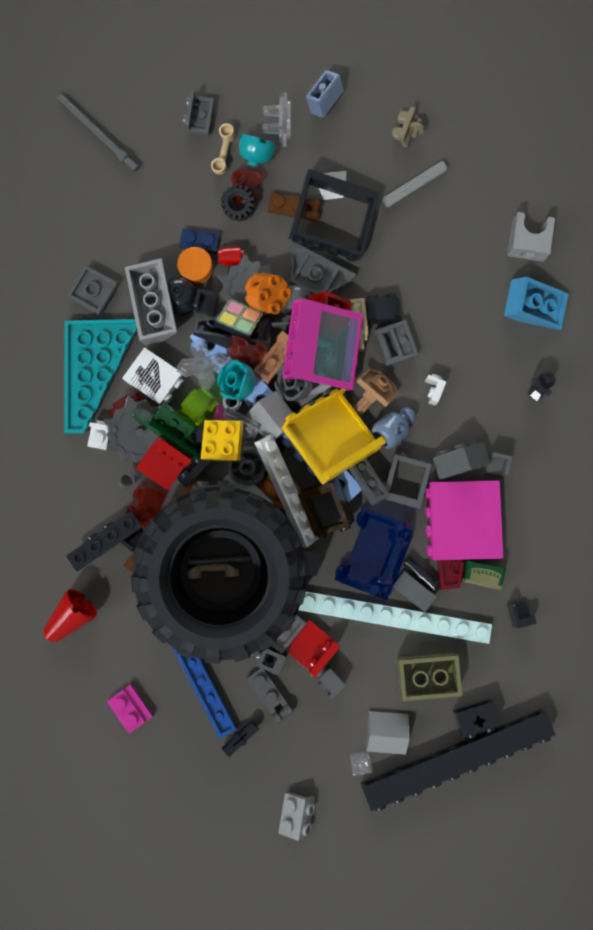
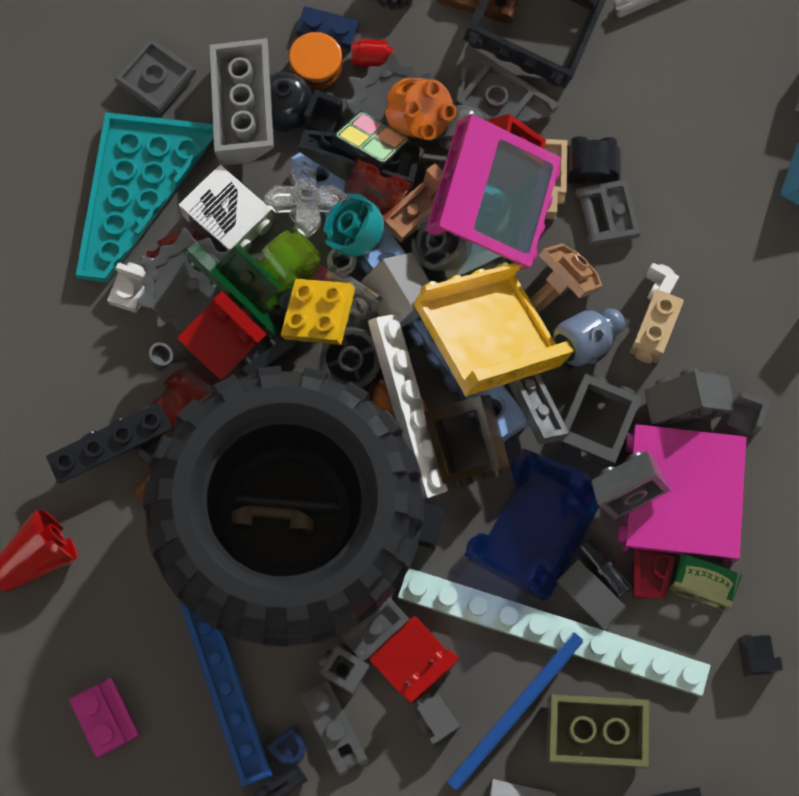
camera: 10 degrees right, 10 degrees down
(244, 710) = (288, 747): none -> dark blue tile
(377, 672) = (514, 711): none -> blue tile
(430, 524) = (629, 485): none -> dark grey slope
(436, 416) = (656, 327): none -> tan bracket

